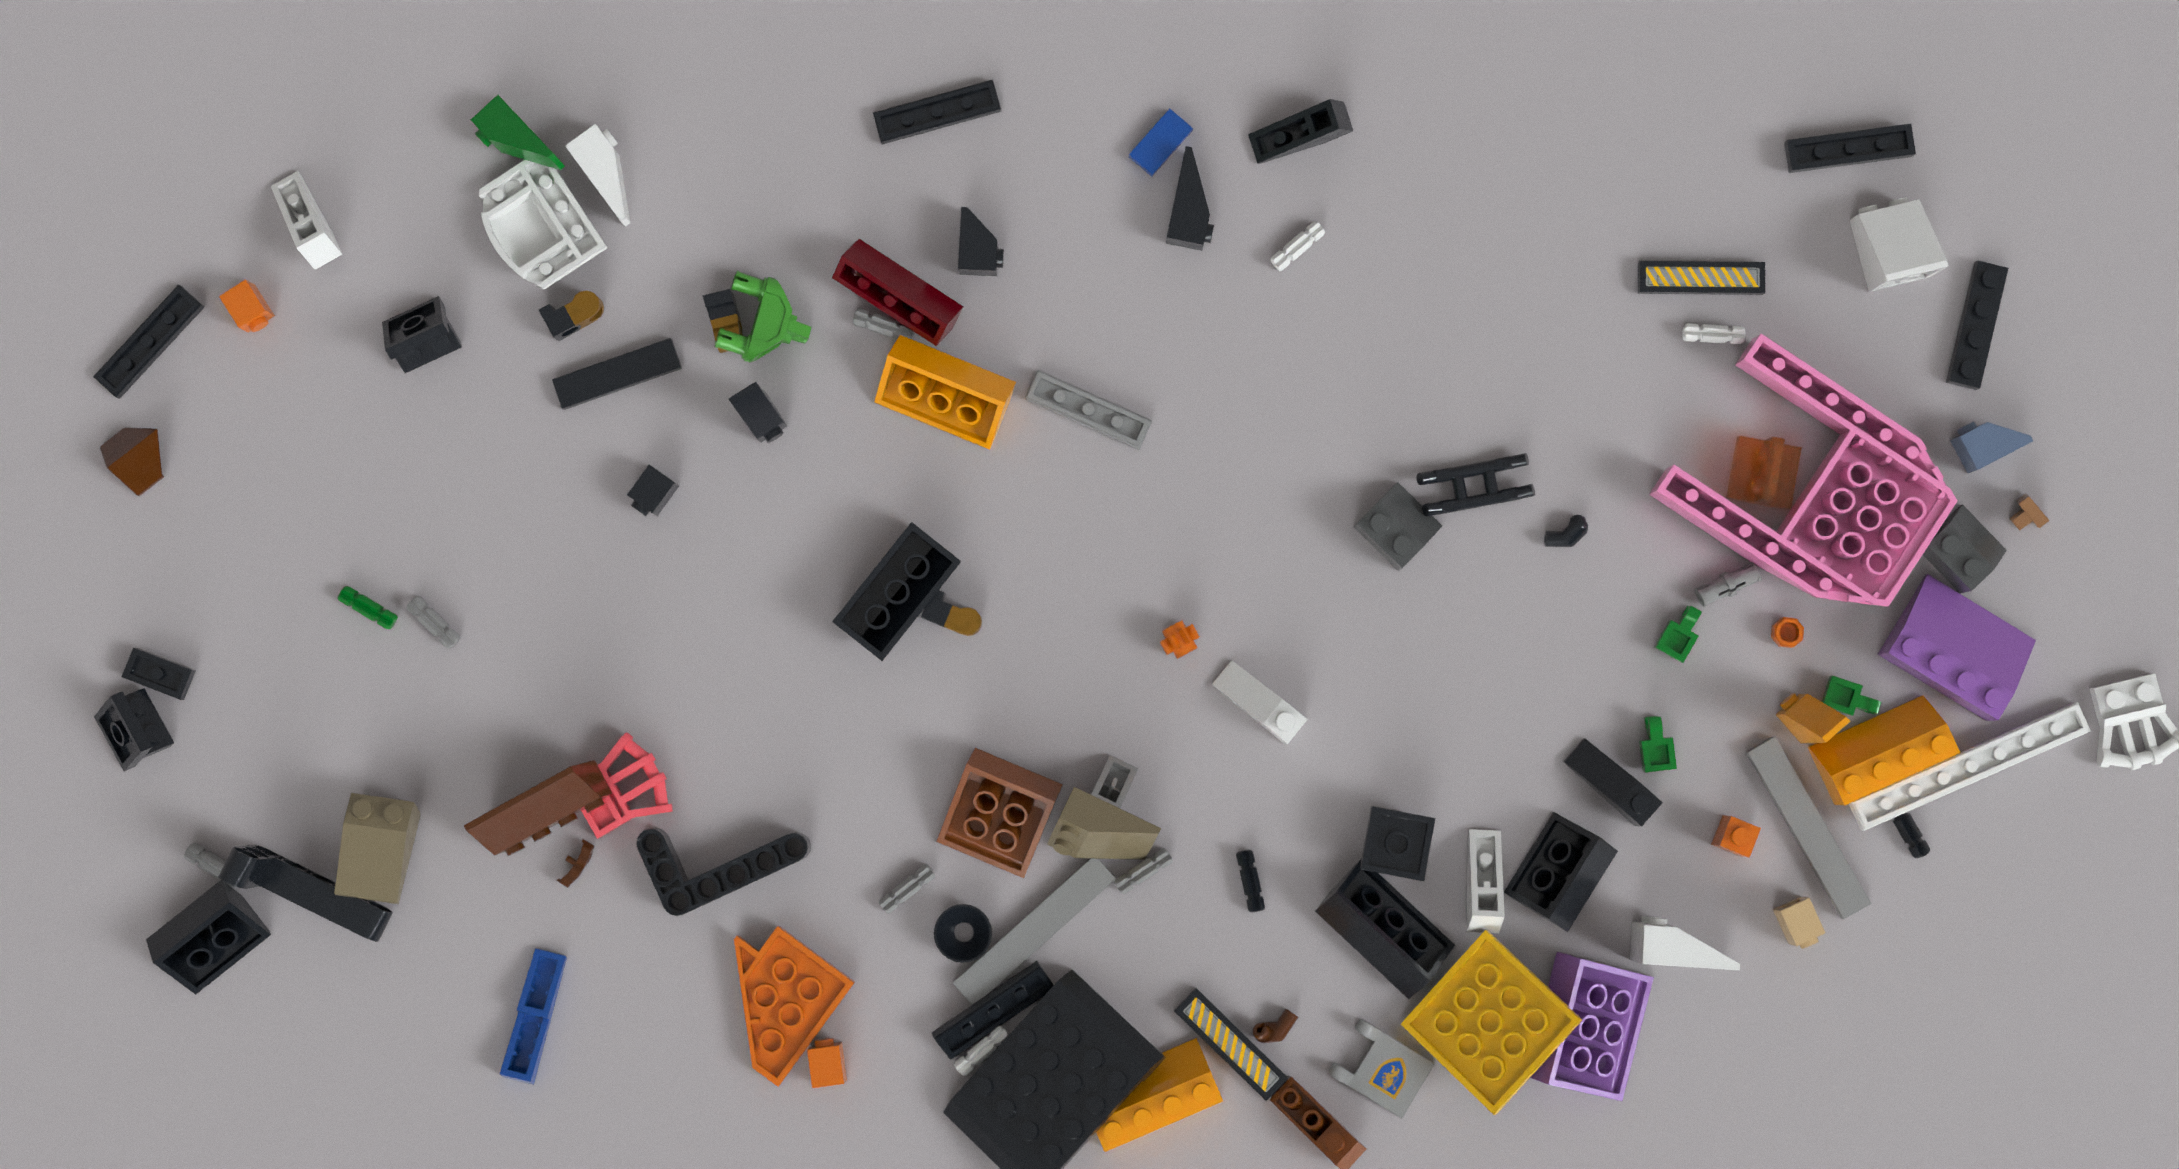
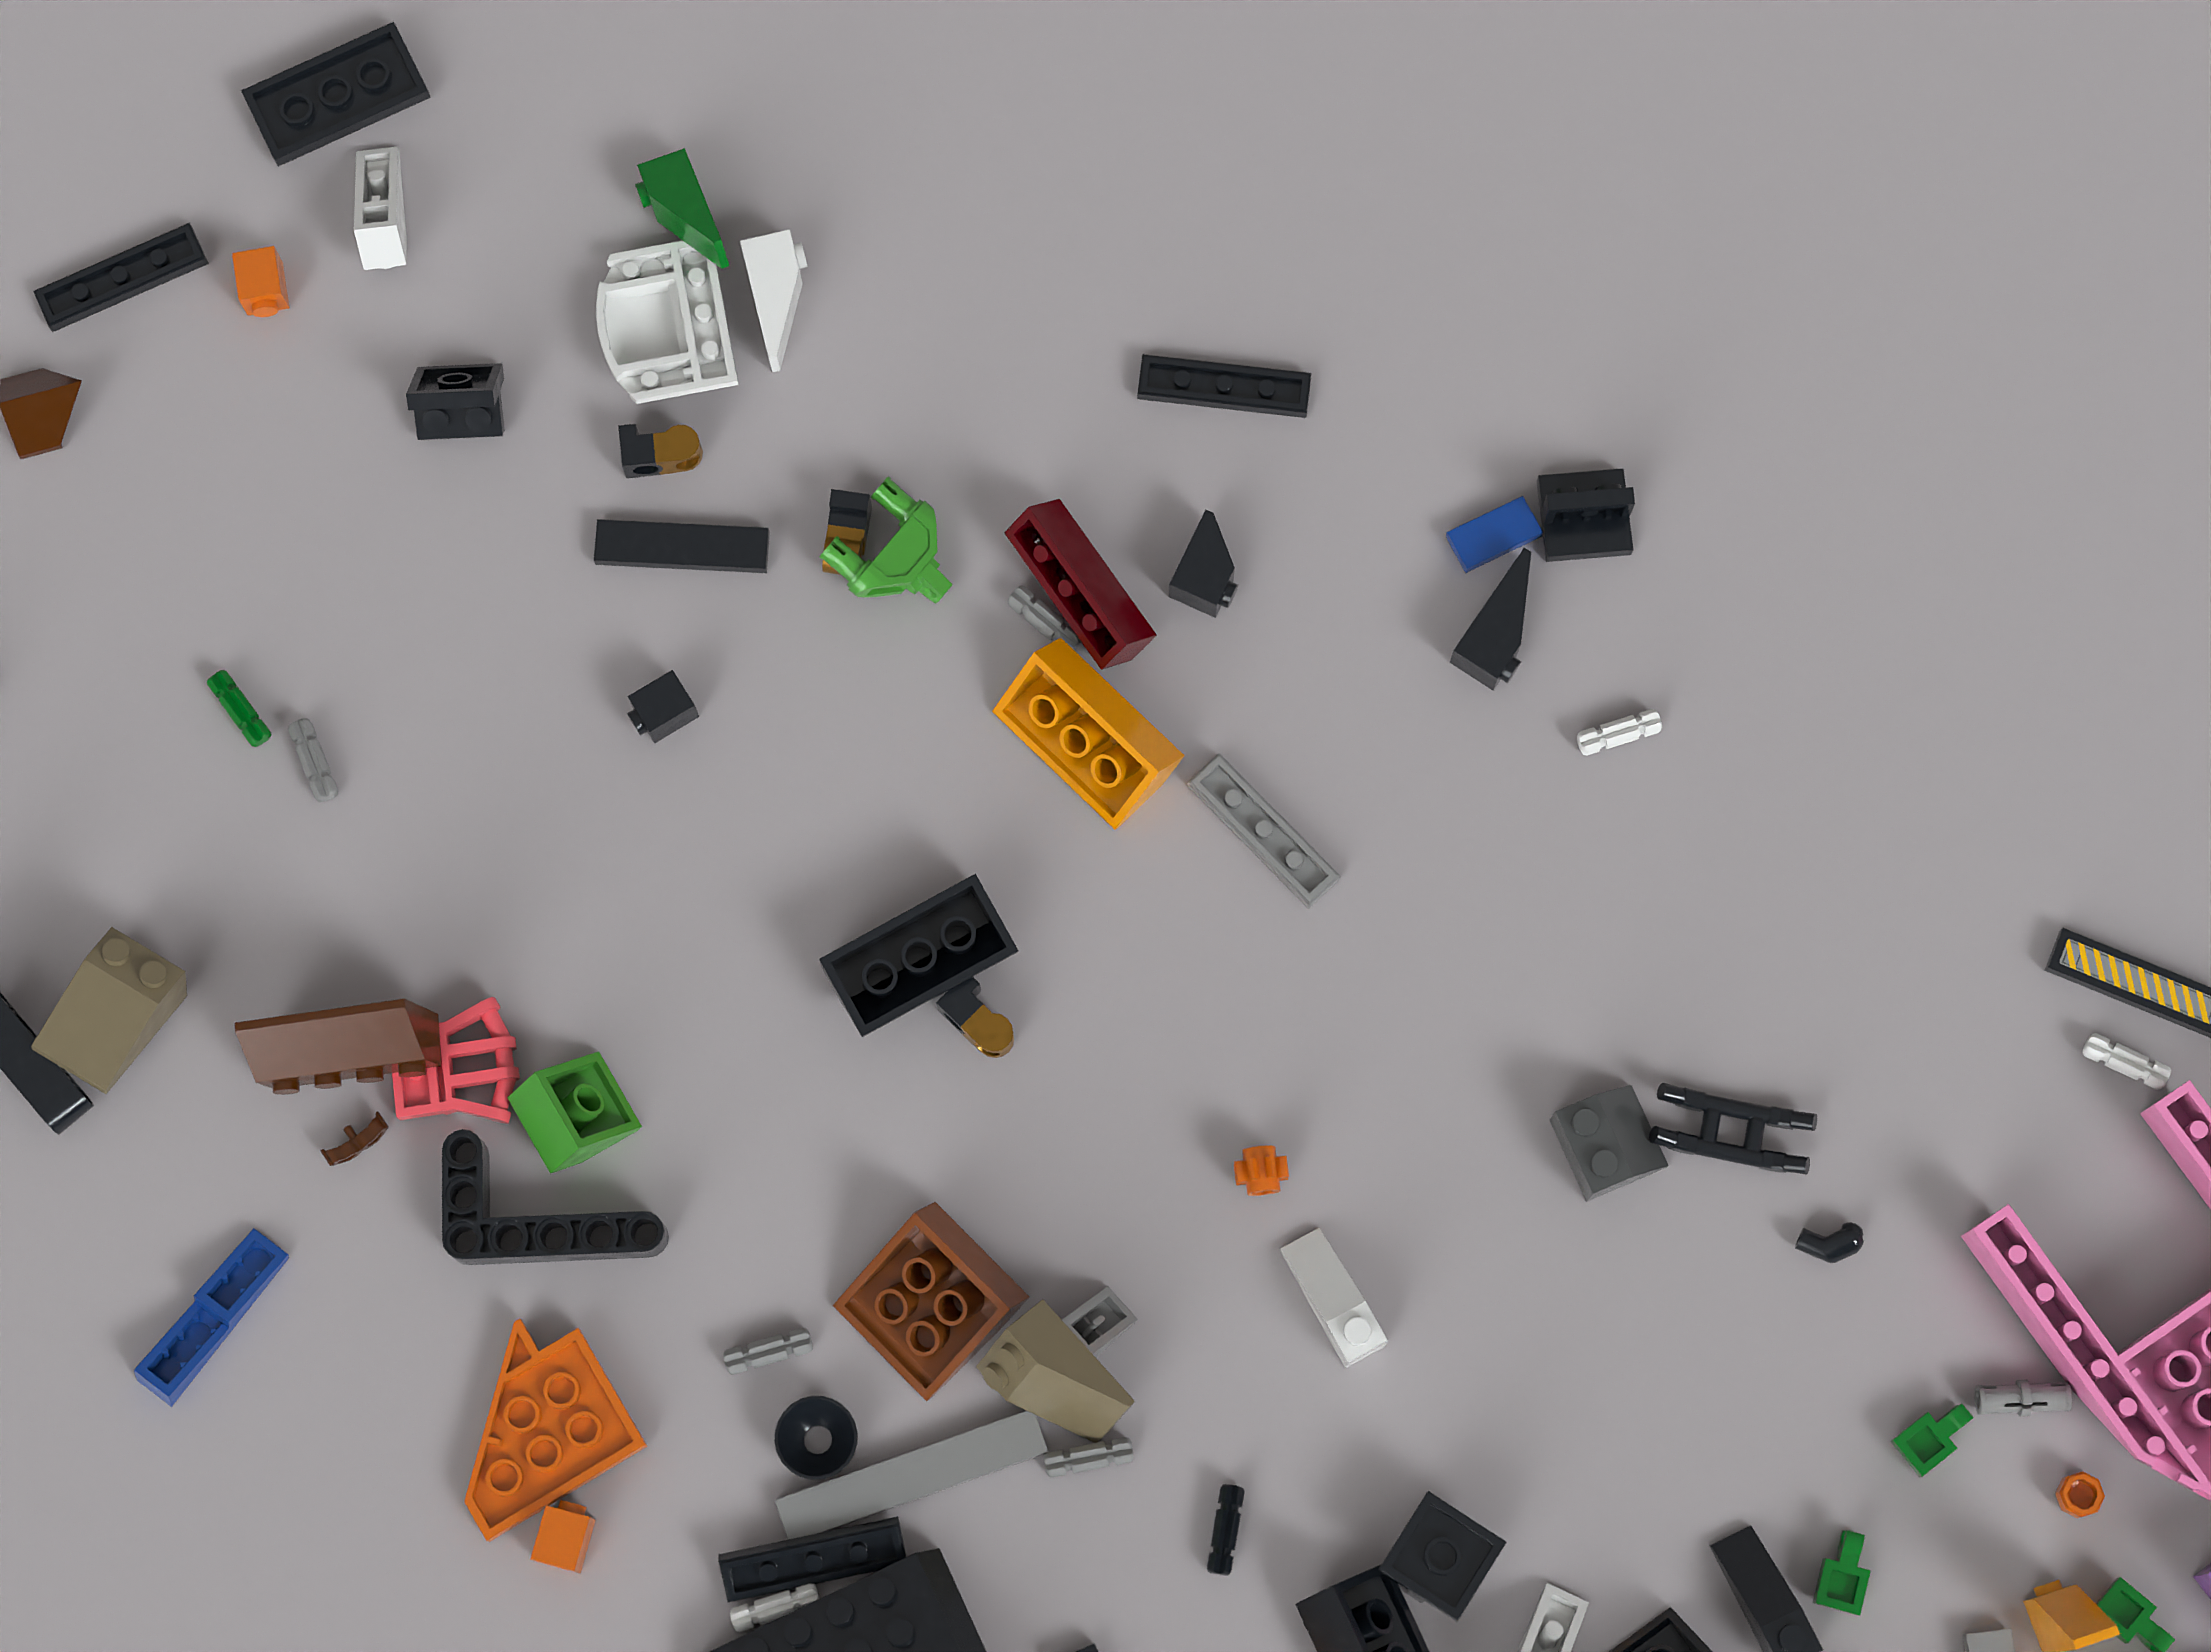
camera: 20 degrees right, 10 degrees down
(238, 151) = (335, 94): none -> black plate
(712, 786) = (573, 1111): none -> bright green slope
(759, 413) = (839, 659): black slope -> none
(1216, 103) = (1585, 514): none -> black bracket
(1301, 131) = (1682, 589): black slope -> none
(1764, 472) = (2127, 1269): clear orange bracket -> none

